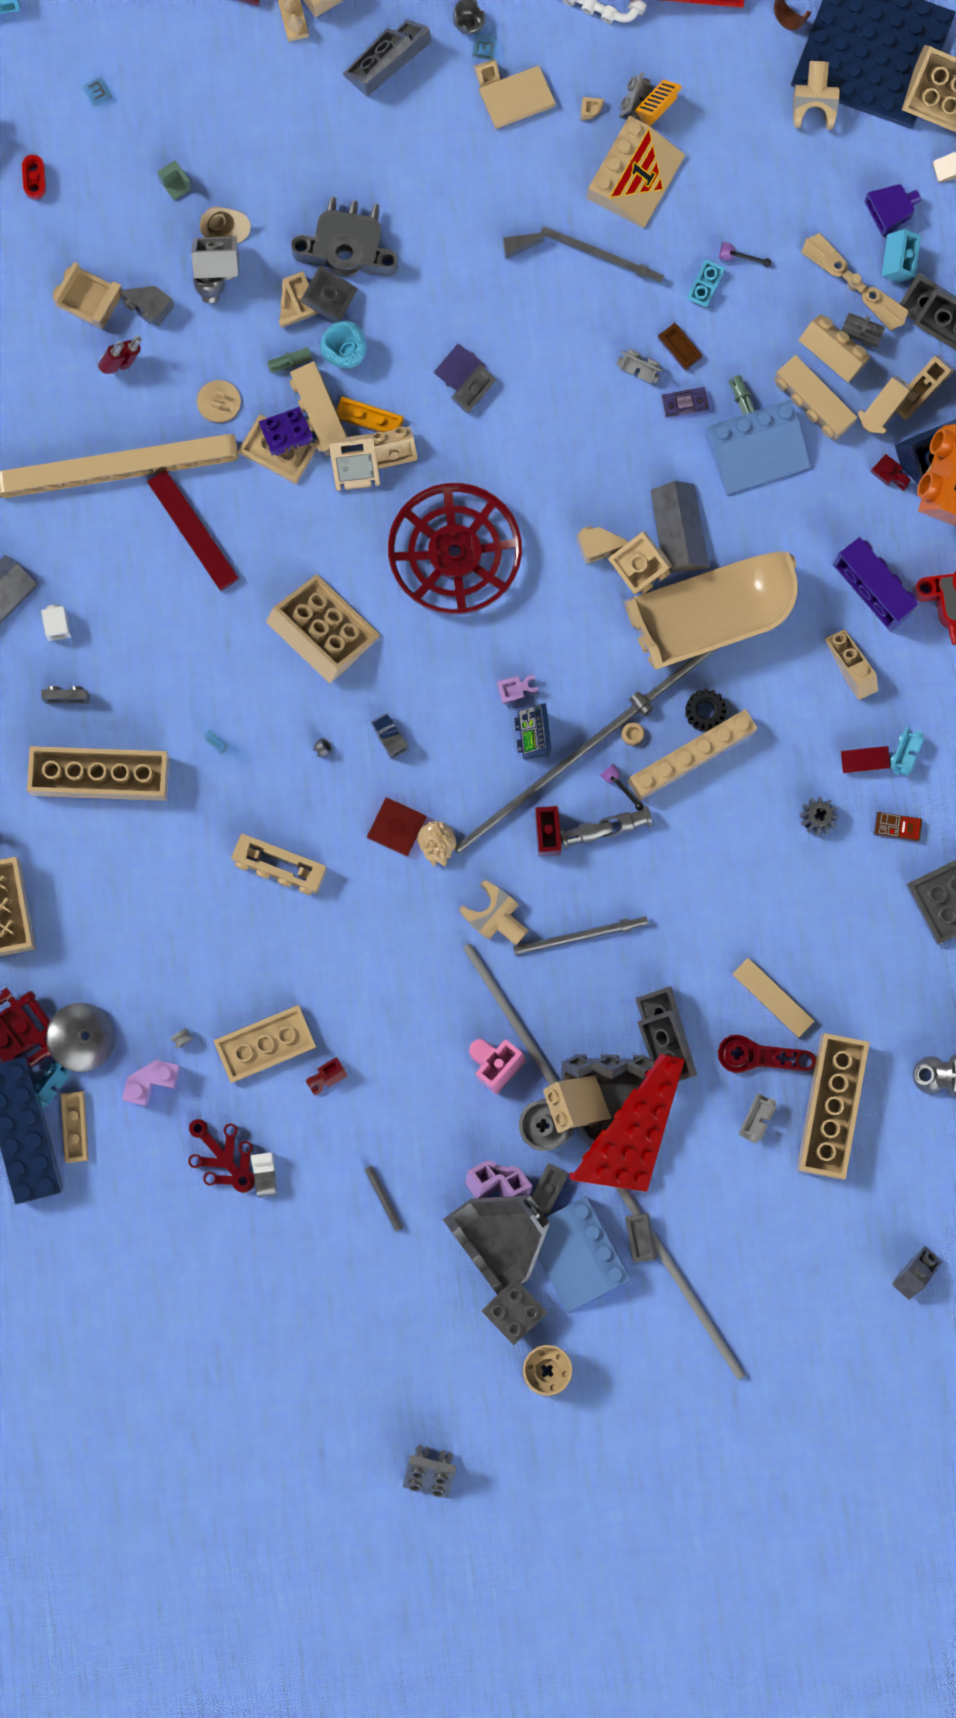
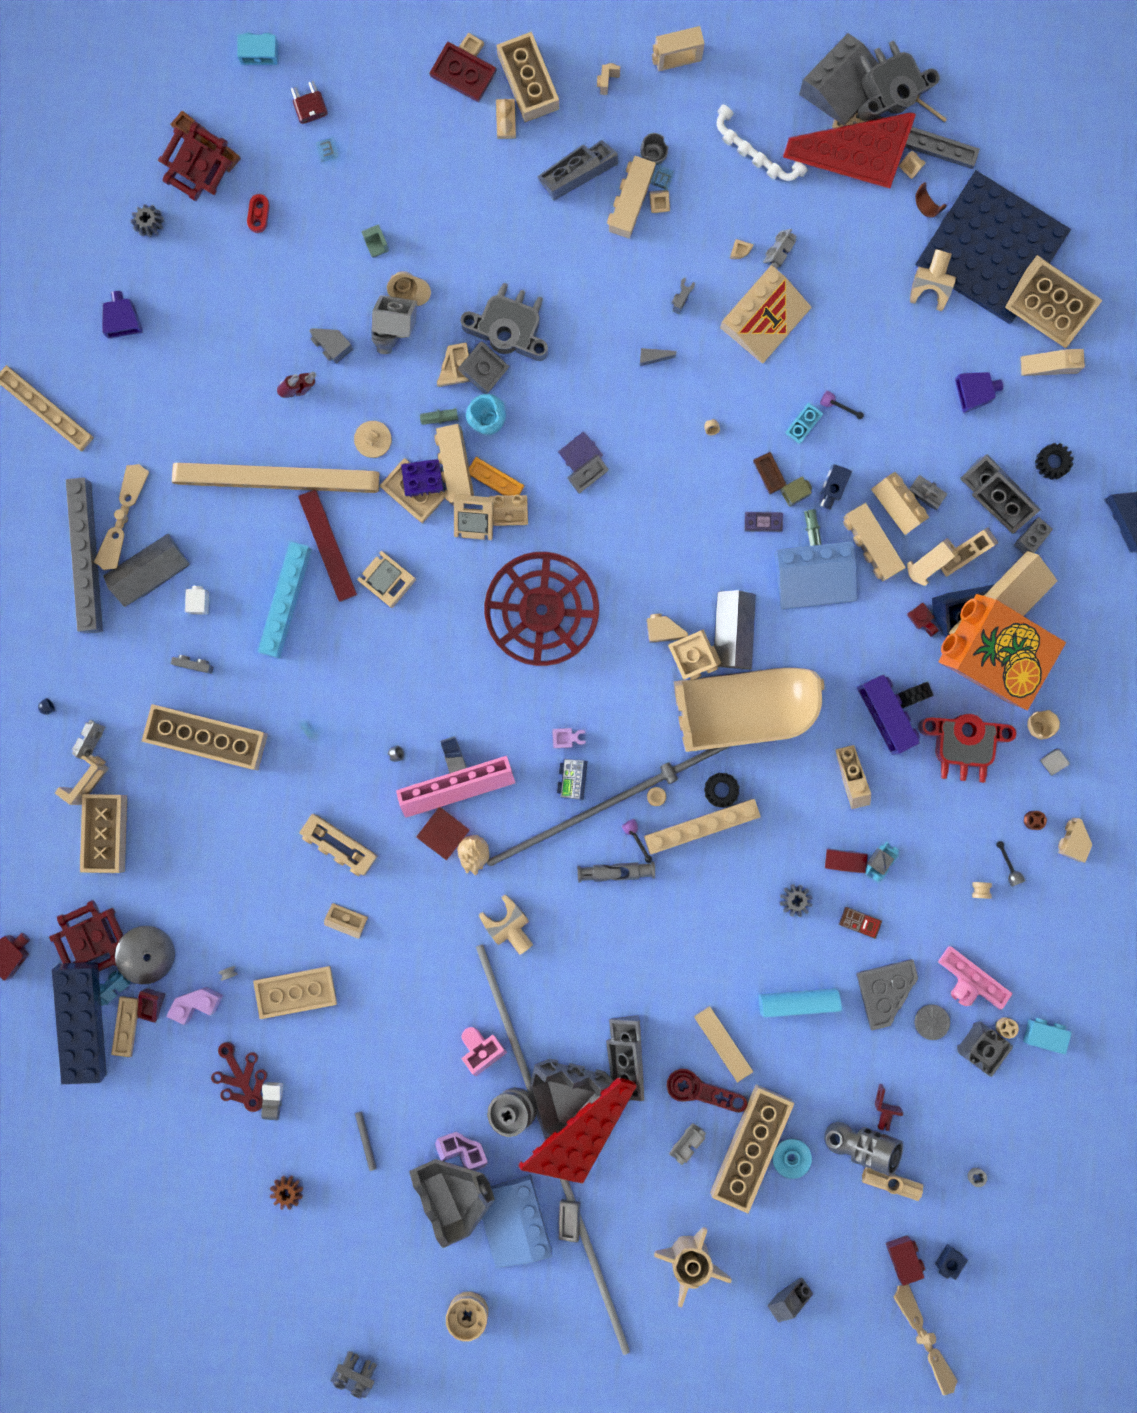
camera: 15 degrees right, 5 degrees up
(67, 47) = (310, 105): none -> dark red piece
(87, 296) = (281, 325): tan panel -> none
(98, 1095) = (149, 1004): none -> dark red slope
(157, 600) = (284, 600): none -> medium azure brick
(265, 550) = (383, 576): none -> container
(298, 1281) = (279, 1192): none -> dark orange gear
(305, 951) = (345, 921): none -> tan slope
(322, 628) = (417, 652): tan slope -> none
(328, 1074) = (342, 1030): dark red plate -> none
(400, 768) = (455, 786): none -> bright pink brick
(455, 74) = (632, 196): none -> tan brick
(514, 1311) = (450, 1262): flat silver plate -> none
(517, 97) = (680, 227): tan tile -> none
(534, 176) = (680, 299): none -> flat silver plate
(548, 831) = (566, 866): dark red brick -> none
(549, 1188) = (501, 1163): flat silver plate -> none
(576, 1103) = (539, 1103): tan panel -> none
(607, 309) = (711, 431): none -> tan hinge
(623, 925) = (613, 957): flat silver bar -> none
(632, 361) = (738, 487): light grey hinge -> none
(641, 270) = (752, 400): flat silver bar -> none
(658, 102) = (798, 257): light orange panel -> none
(714, 359) = (796, 491): none -> olive brick
(756, 335) = (839, 478): none -> dark blue torso
(799, 1237) = (691, 1263): none -> tan brick
(849, 930) = (800, 1002): none -> medium azure brick
(883, 306) = (950, 475): tan piece -> none
(893, 1109) = (792, 1168): none -> medium azure dish
(901, 256) = (975, 435): medium azure brick -> none
(901, 555) = (915, 694): none -> black tyre
(904, 749) = (880, 861): none -> flat silver tile

